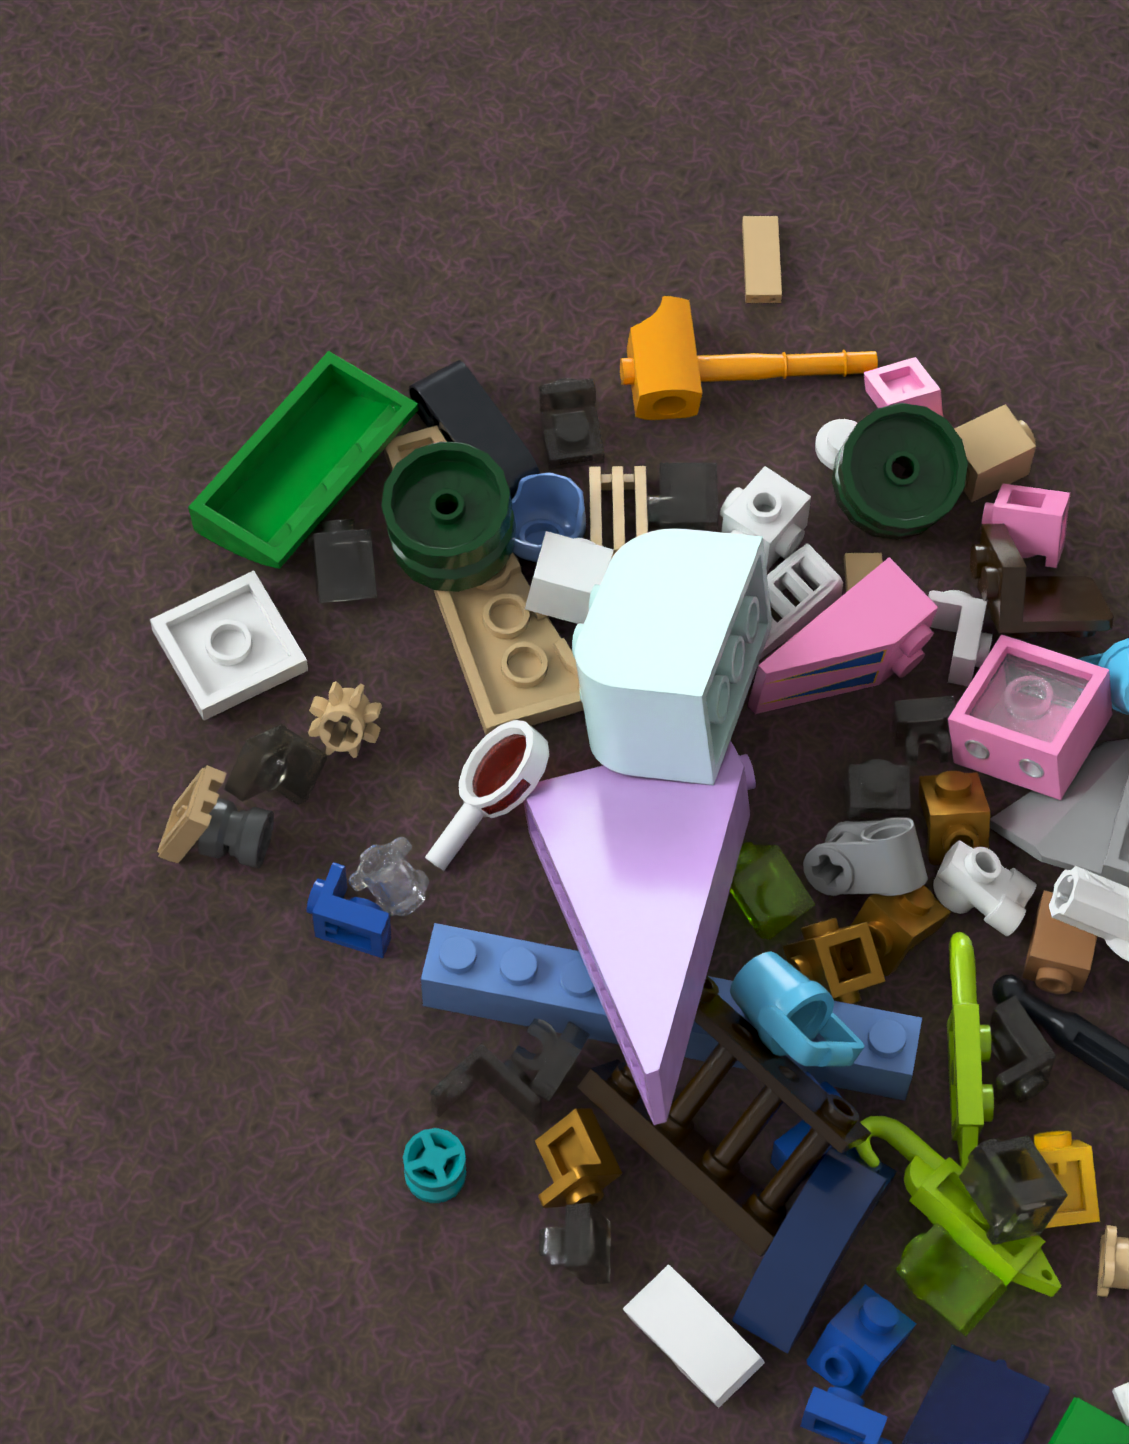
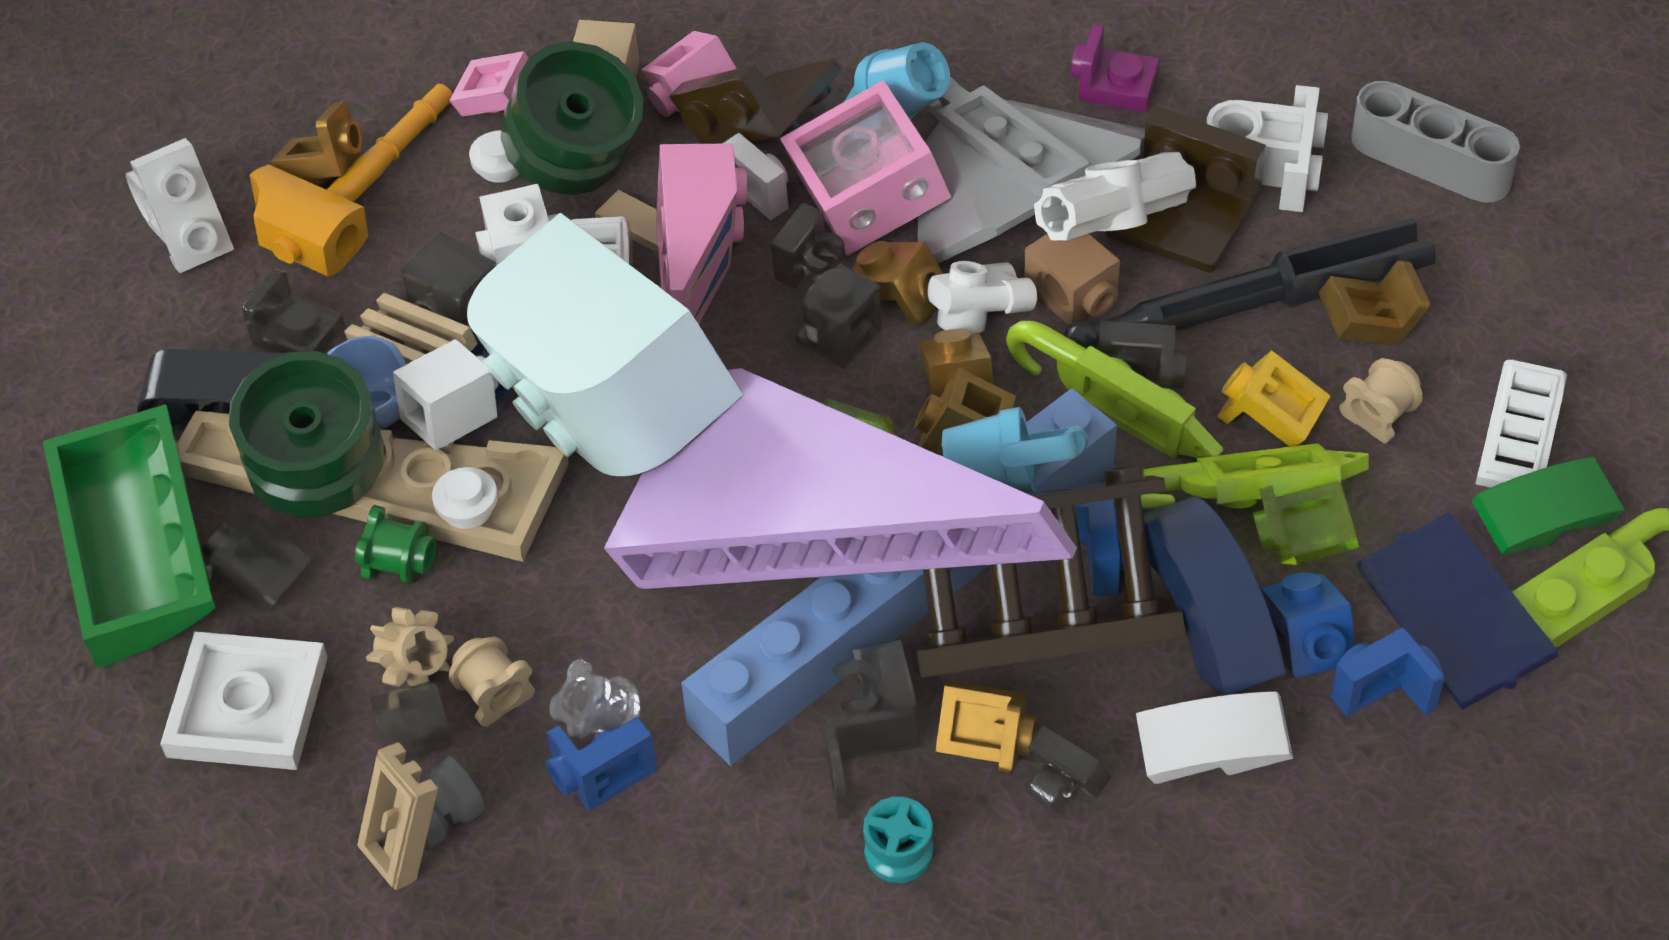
camera: 50 degrees left, 10 degrees down
(363, 790) = (490, 678): none -> tan brick
(424, 644) = (394, 547): none -> green brick
(492, 659) = (465, 497): none -> white plate
(493, 782) = (573, 564): white piece -> none
(604, 271) = (179, 205): none -> white pin
(736, 324) = (325, 155): none -> pearl gold bracket
(761, 259) = (272, 108): tan piece -> none
(867, 859) = (896, 341): light grey piece -> none
(1012, 1188) = (1266, 421): clear smoke brick -> none

